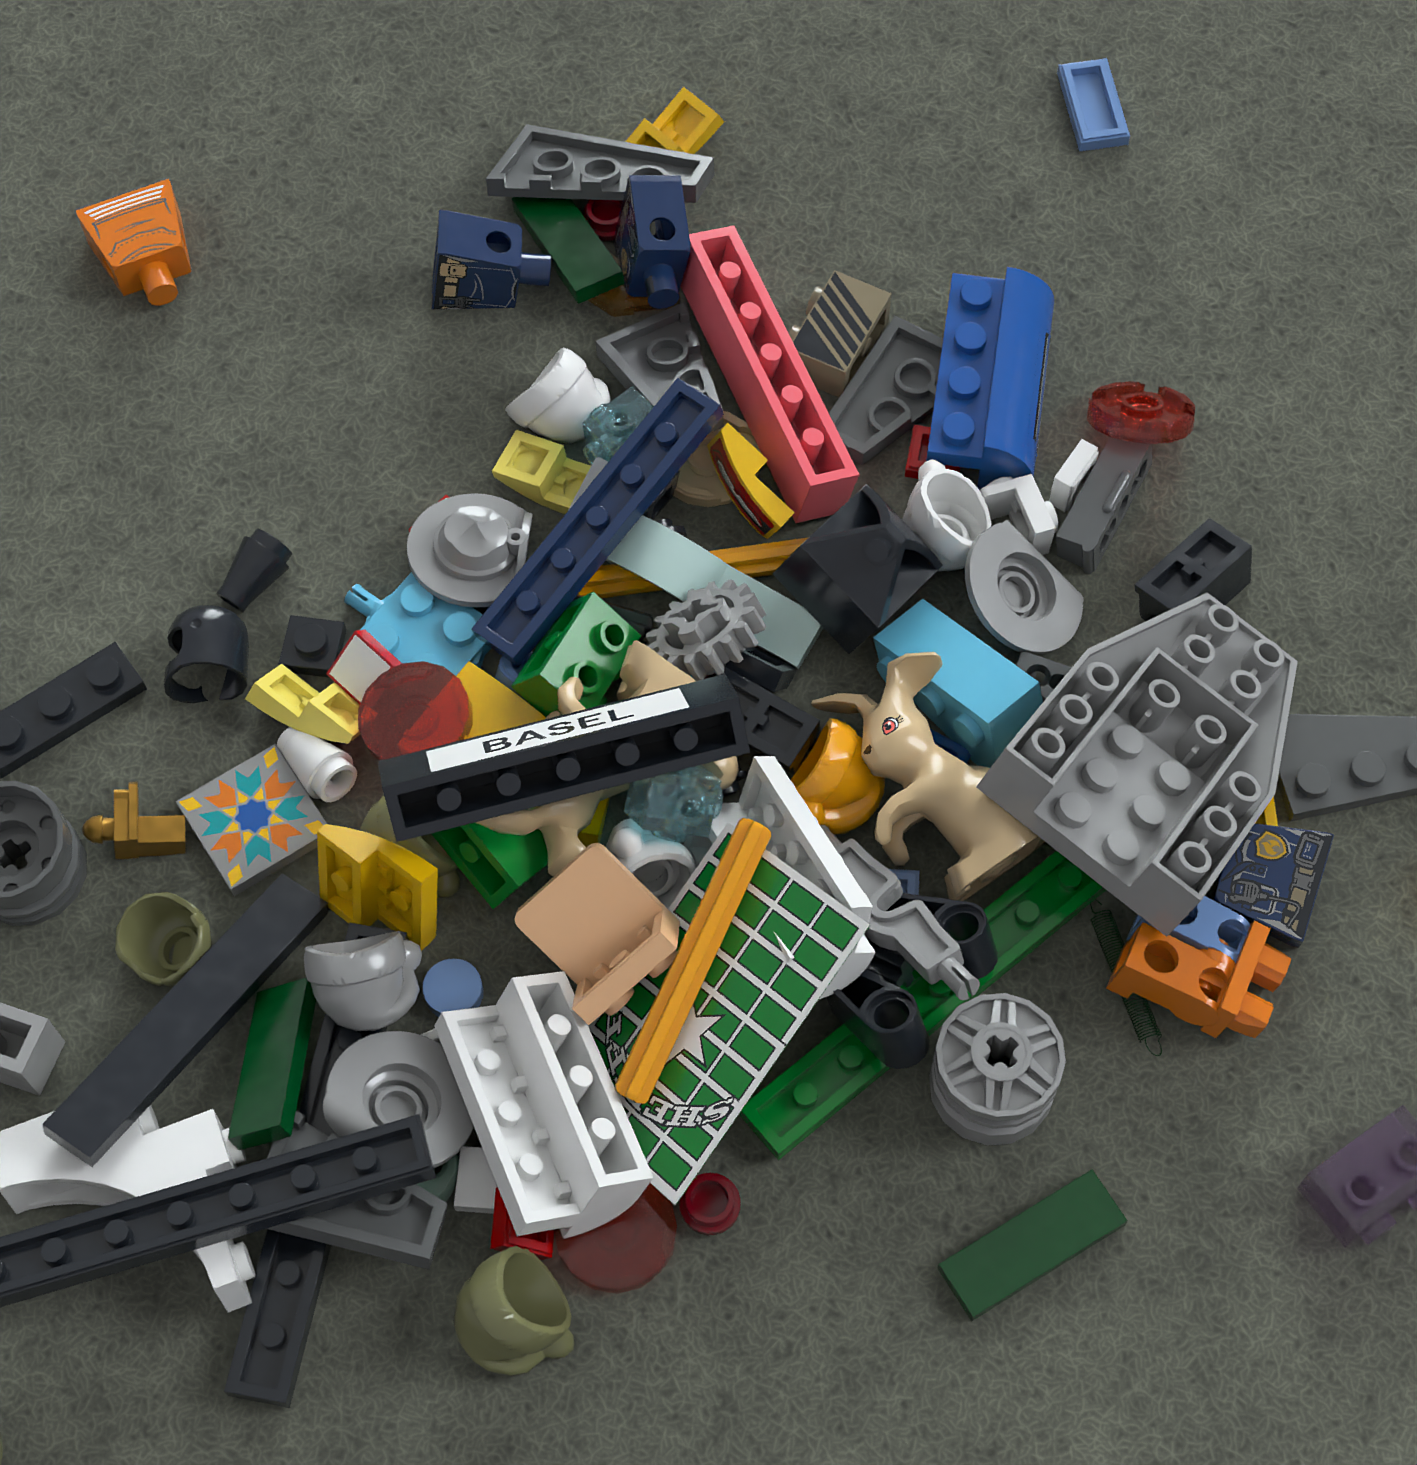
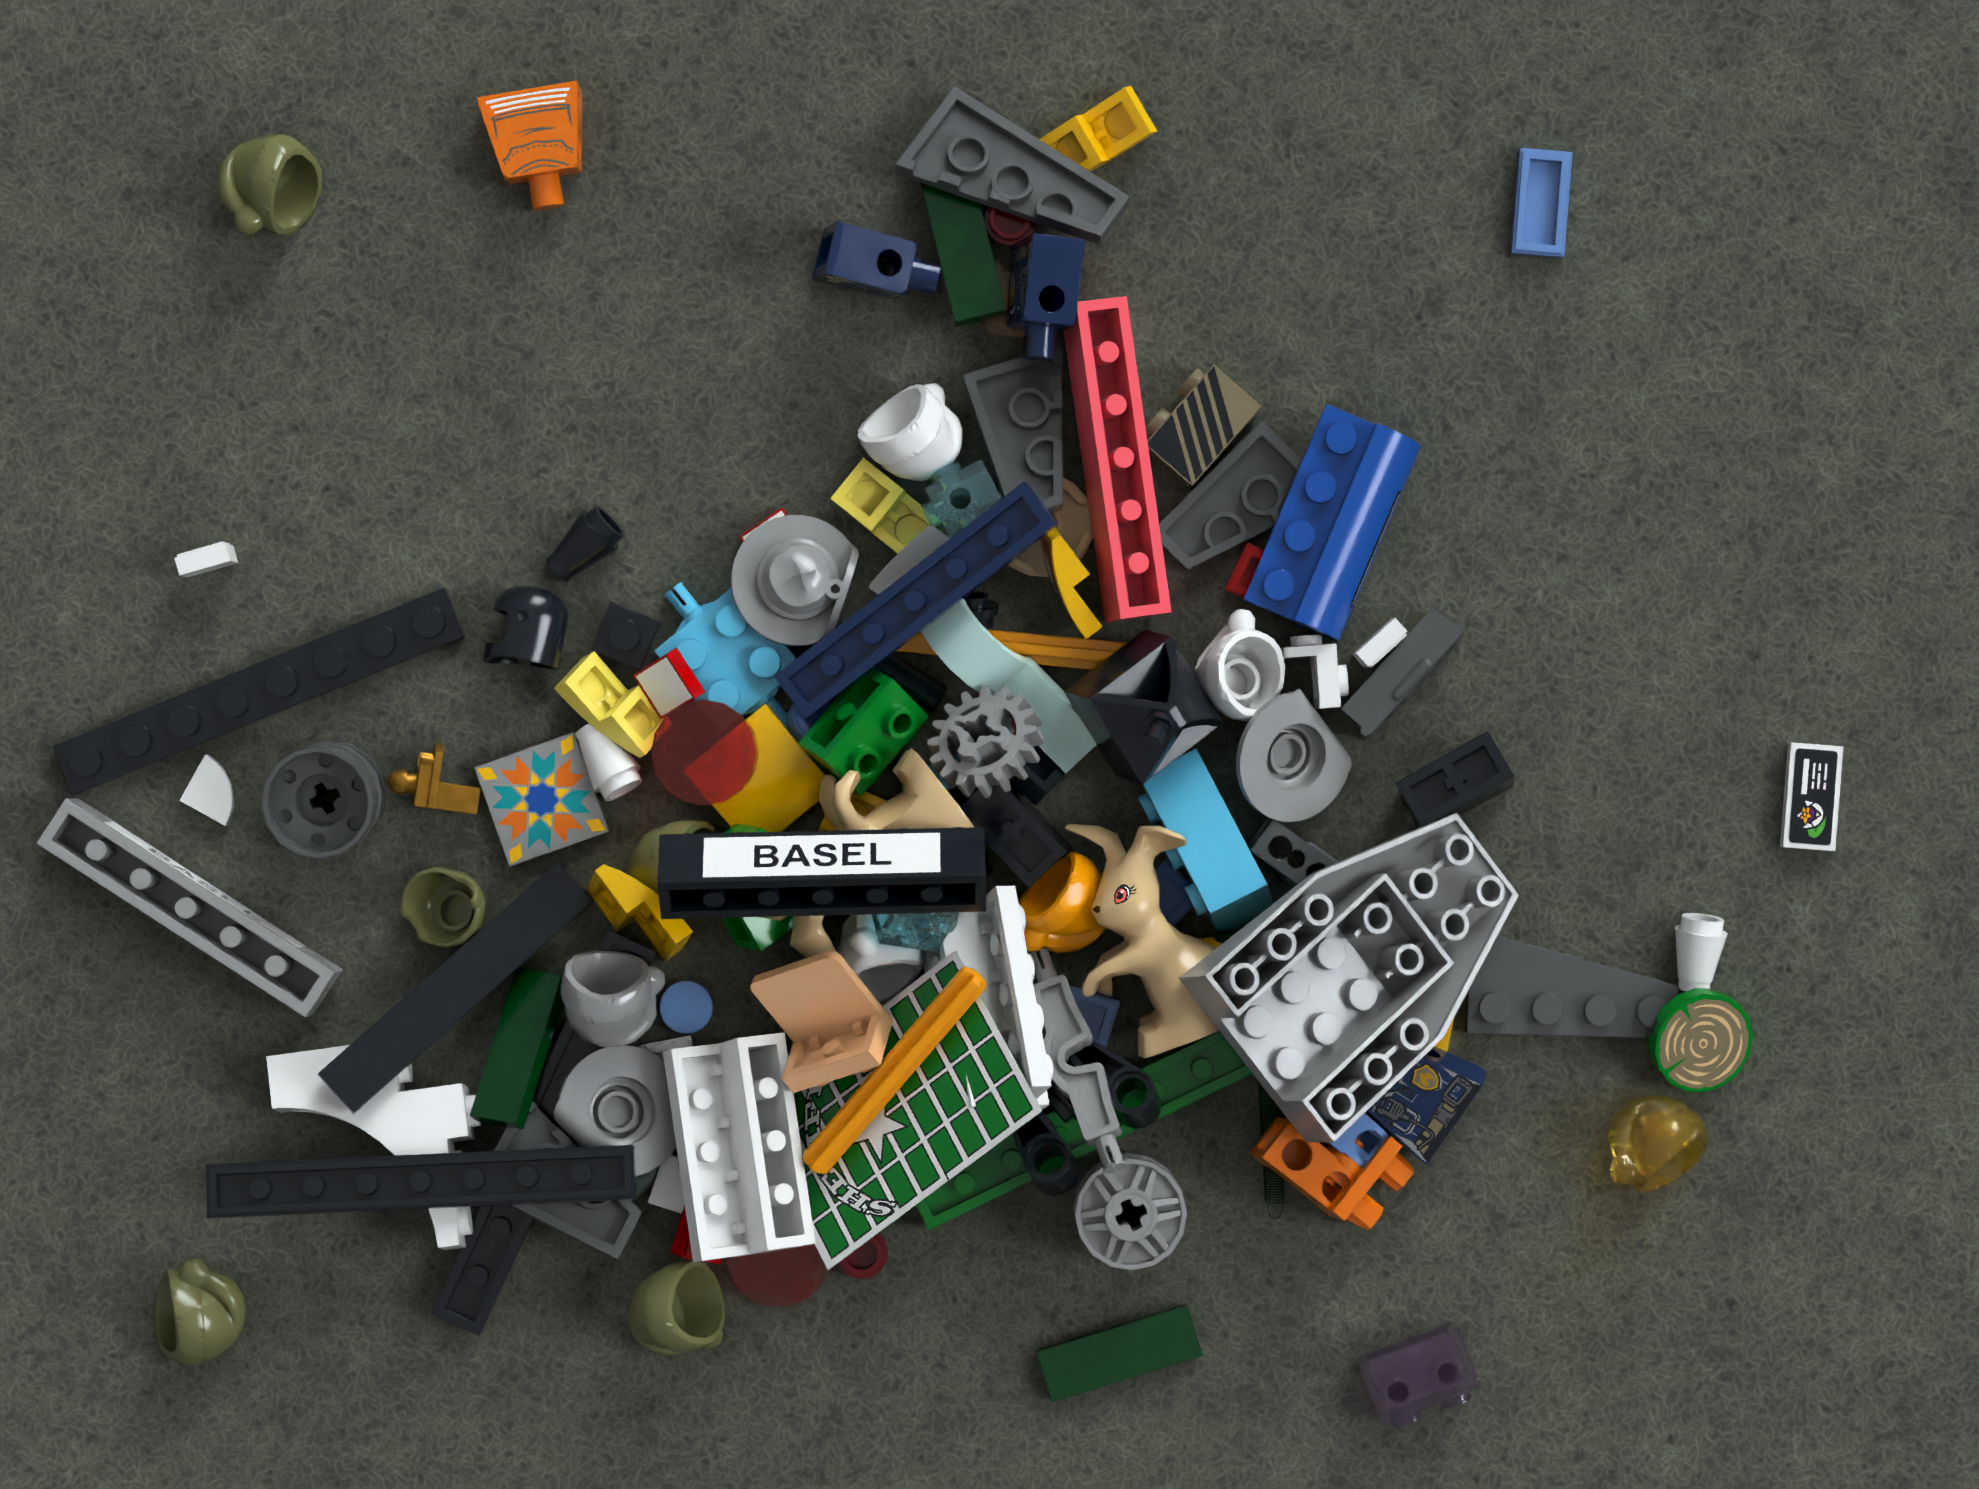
camera: 10 degrees right, 25 degrees up
(1141, 416) = (1463, 595): clear red tile -> none

